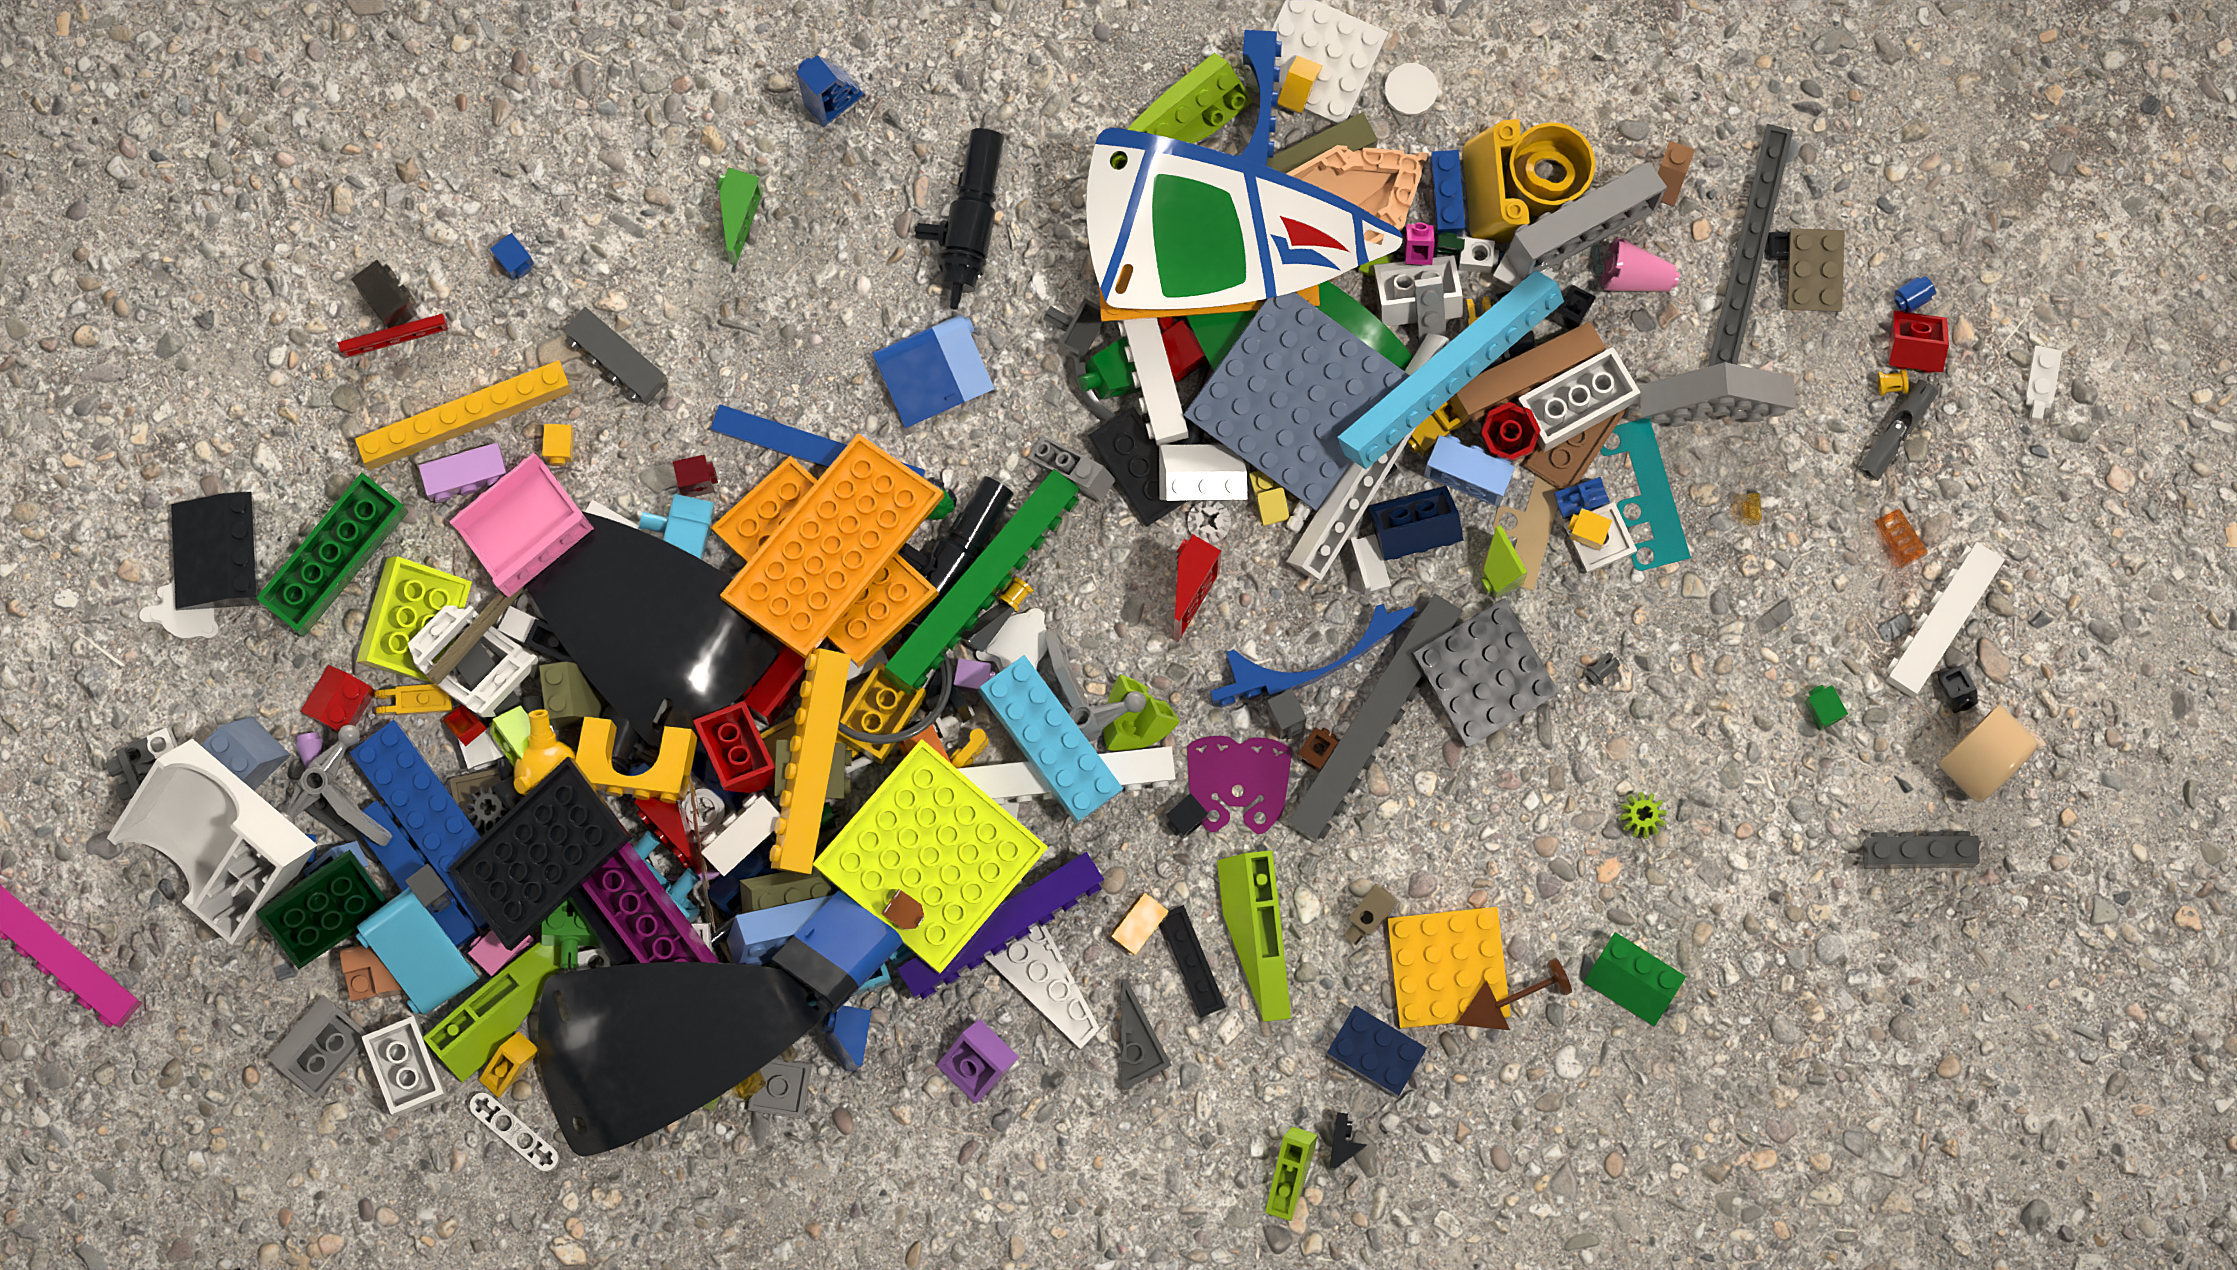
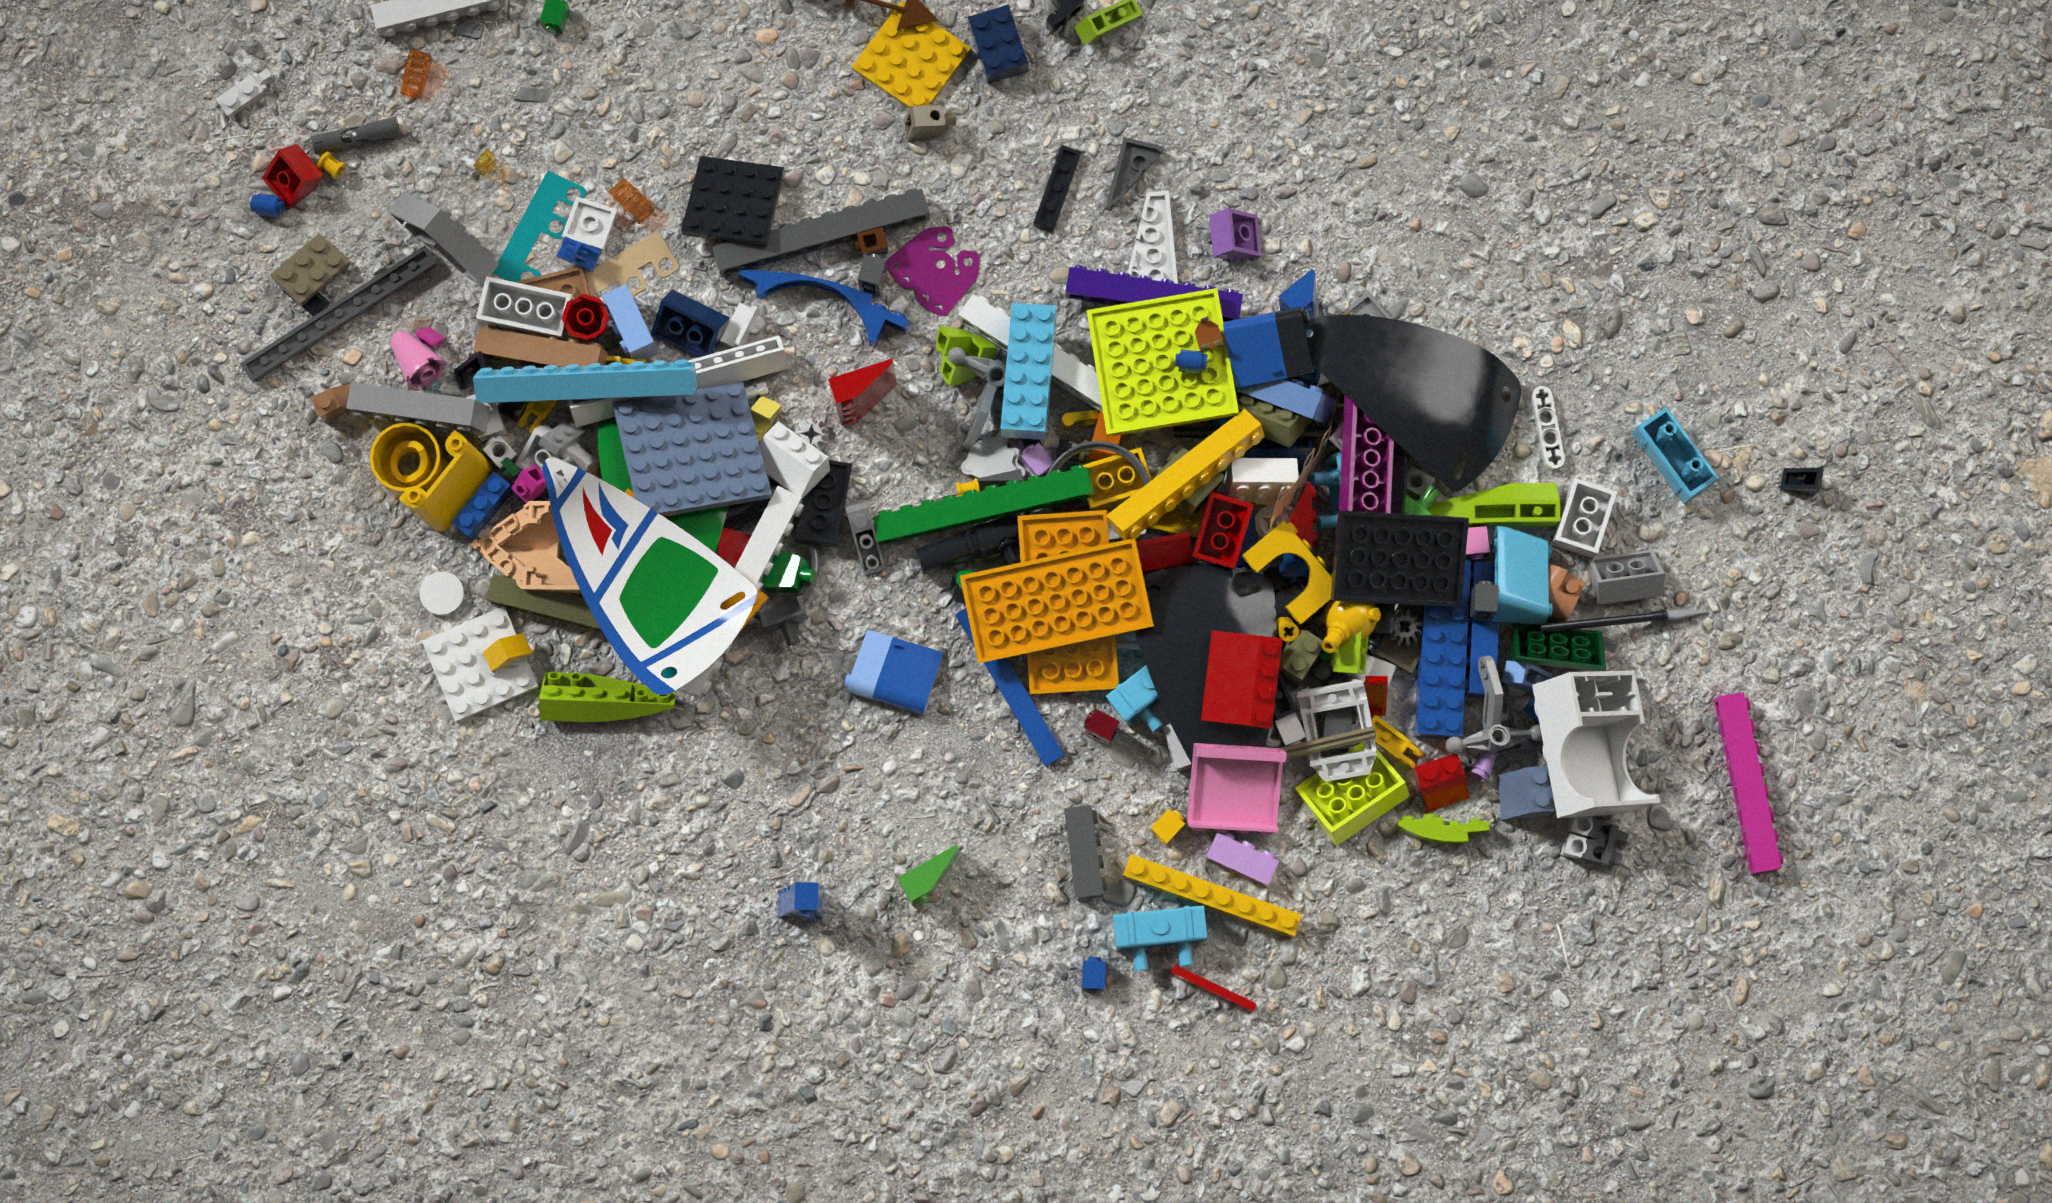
camera: 140 degrees left, 0 degrees up
(180, 623) = (1490, 925): white tile -> none
(215, 552) = (1442, 942): black slope -> none
(246, 1048) = (1655, 616): none -> black piece
(307, 648) = (1433, 829): none -> lime slope
(332, 554) = (1369, 875): green brick -> none
(365, 1206) = (1675, 455): none -> medium azure piece
(381, 291) = (1198, 1015): clear smoke brick -> none
(485, 342) = (1160, 928): none -> medium azure piece
(508, 1064) = (1518, 469): yellow slope -> none
(593, 705) = (1293, 631): none -> yellow bush
(595, 616) = (1241, 679): none -> red slope
(899, 872) = (1191, 361): none -> blue brick
(969, 218) = (785, 746): black piece -> none
(1138, 923) = (1070, 234): hinge -> none
(1186, 816) = (985, 270): black brick -> none
(1255, 927) = (1002, 172): lime wedge -> none
(1260, 54) = (513, 689): blue arch -> none
(1503, 566) = (664, 253): lime slope -> none
(1561, 595) = (638, 212): none -> clear orange slope
(1589, 528) = (592, 228): yellow brick -> none
(1601, 669) = (663, 148): dark grey pin -> none
(1645, 305) = (430, 337): none -> dark pink slope
(1649, 823) = (711, 49): lime gear -> none

